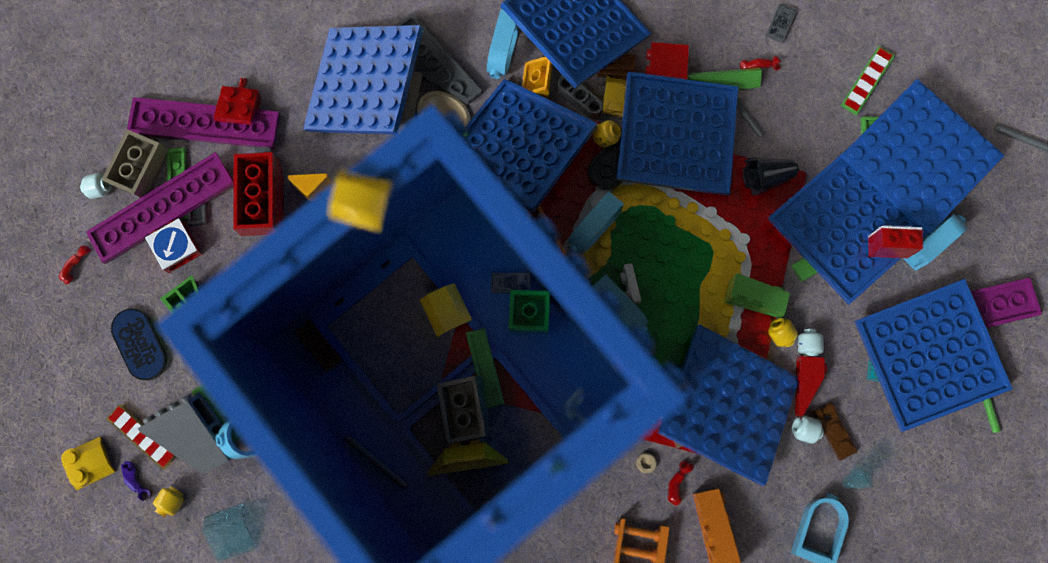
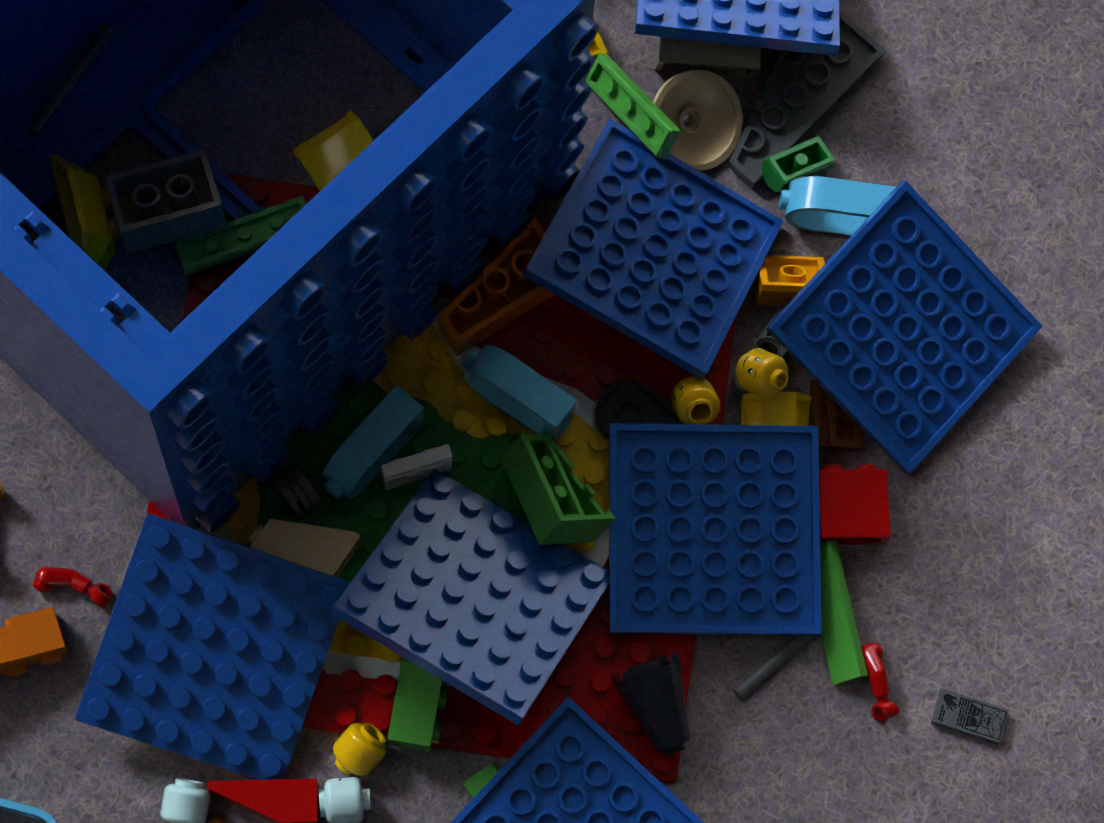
camera: 70 degrees right, 5 degrees down
(474, 66) = (797, 162): none -> green brick
(597, 95) = (762, 373): none -> yellow head
(646, 463) = (104, 528): tan tile -> none
(653, 214) = (551, 493): none -> bright green wedge
(673, 345) = (307, 545): none -> tan slope
(712, 260) = (473, 596): none -> blue plate

